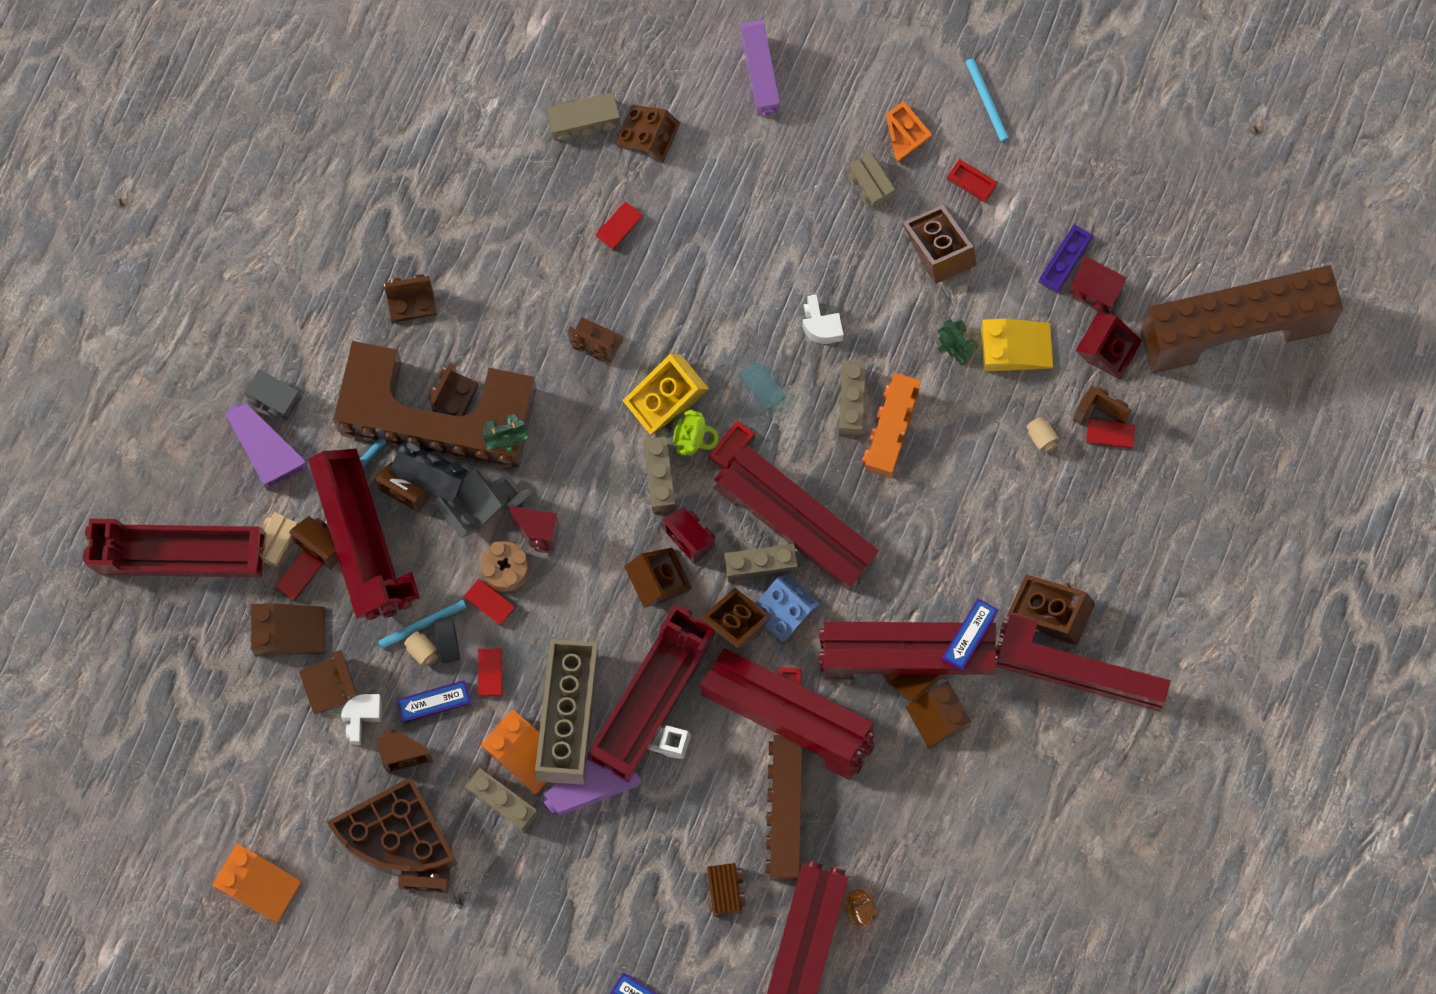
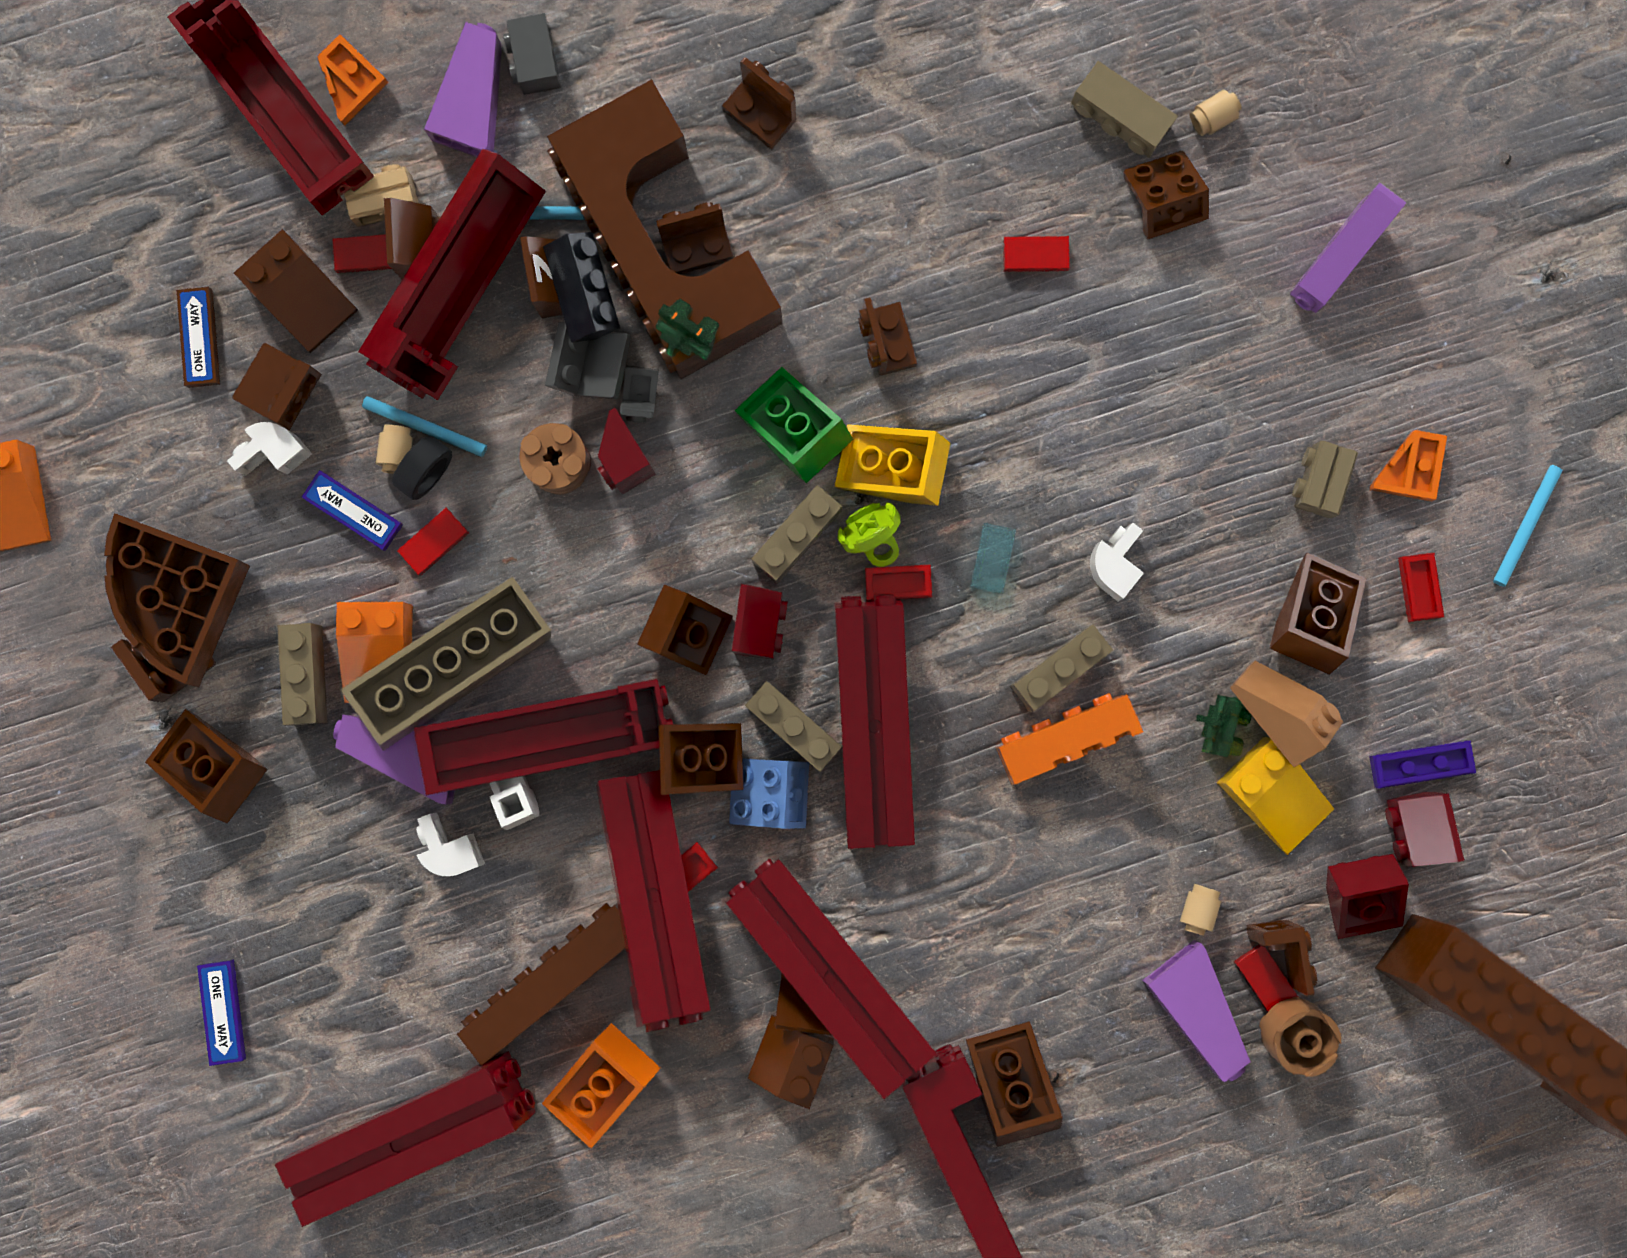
camera: 50 degrees right, 10 degrees up
(194, 503) = (349, 78): none -> orange wing
(262, 705) = (198, 337): none -> tile
(400, 751) = (260, 522): reddish brown slope -> none
(489, 602) = (506, 476): red tile -> none
(504, 895) = (206, 767): none -> reddish brown slope
(598, 426) = (794, 424): none -> green slope
(627, 71) = (1215, 113): none -> tan brick
(669, 807) = (443, 856): none -> white brick
(725, 889) = (406, 994): reddish brown brick -> none
(860, 907) = (507, 1159): clear orange head -> none
(865, 828) = (601, 1085): none -> orange slope
(970, 634) = (898, 1038): tile -> none
(976, 301) = (1288, 712): none -> medium nougat slope
(1094, 480) = (1196, 1003): none -> medium lavender slope
(1142, 447) = (1300, 1037): none -> medium nougat brick

